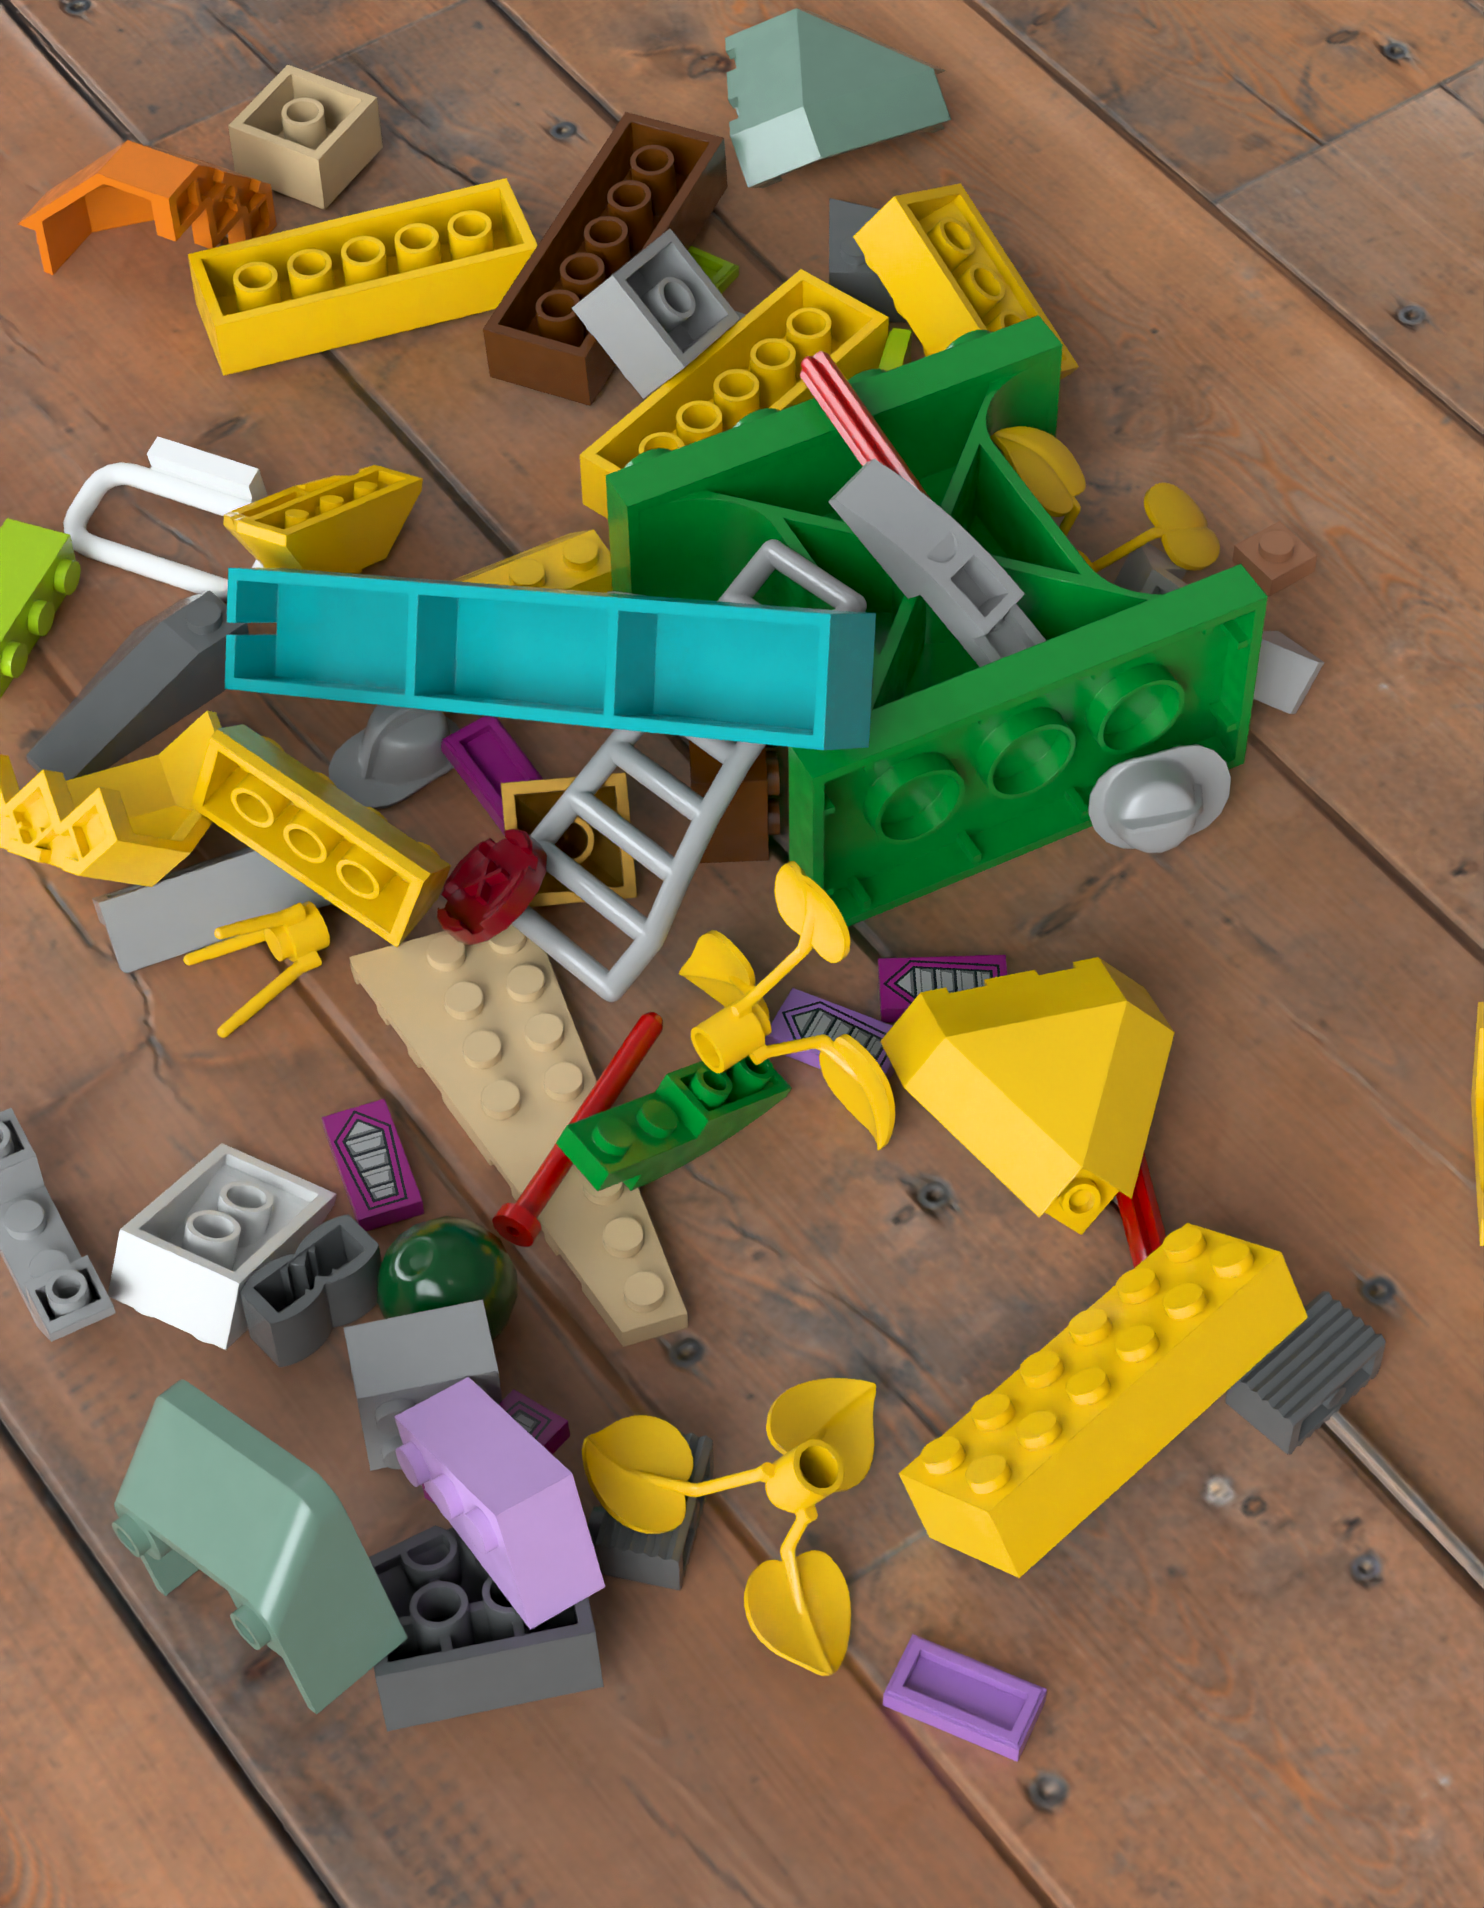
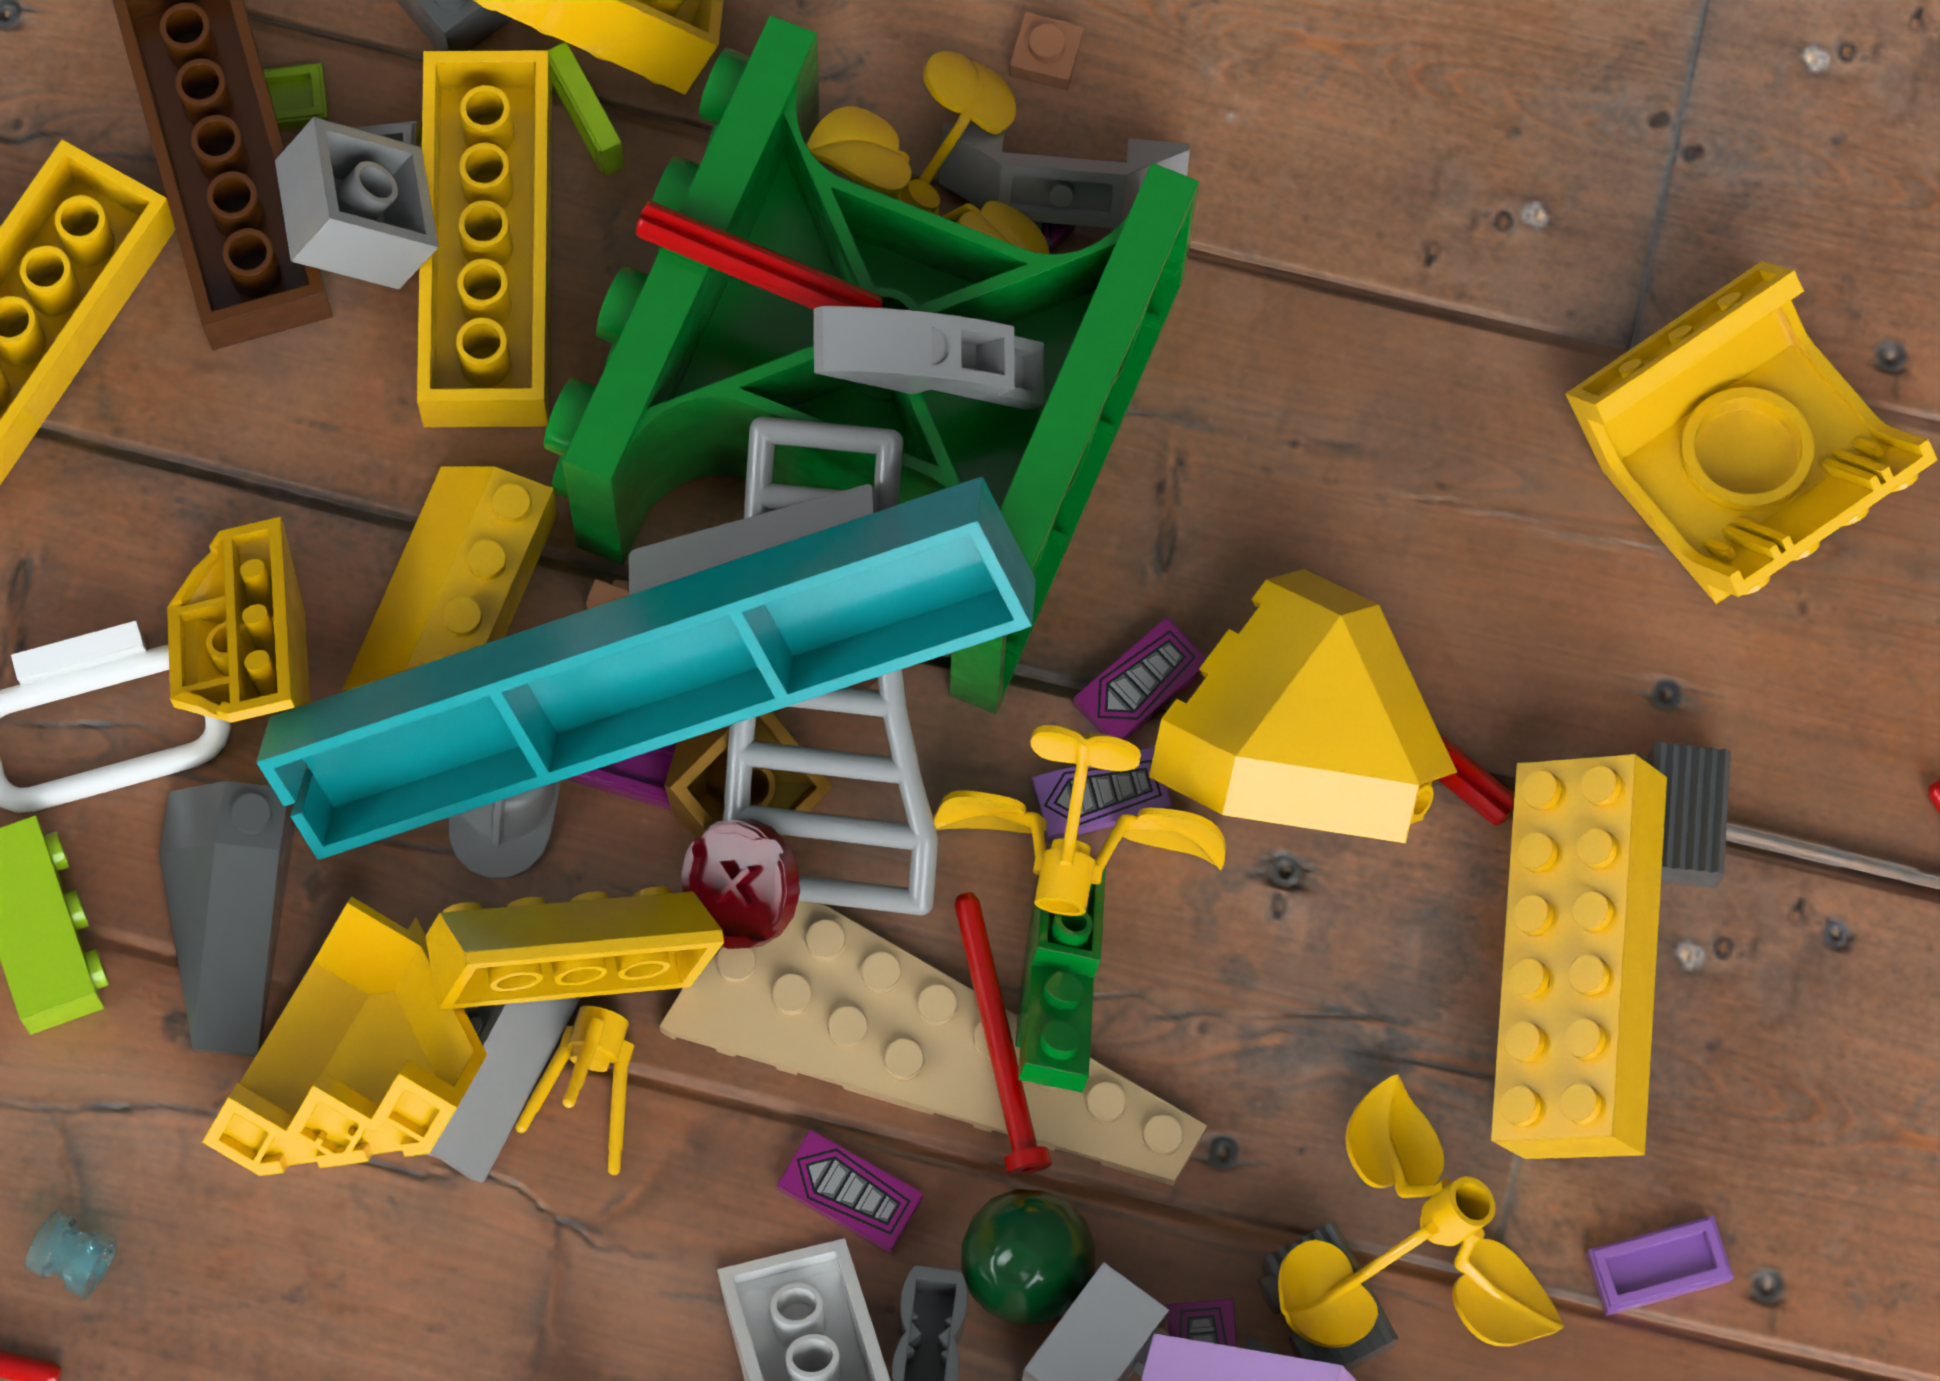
camera: 45 degrees left, 20 degrees up
(1159, 798) = (1177, 386): light grey piece -> none

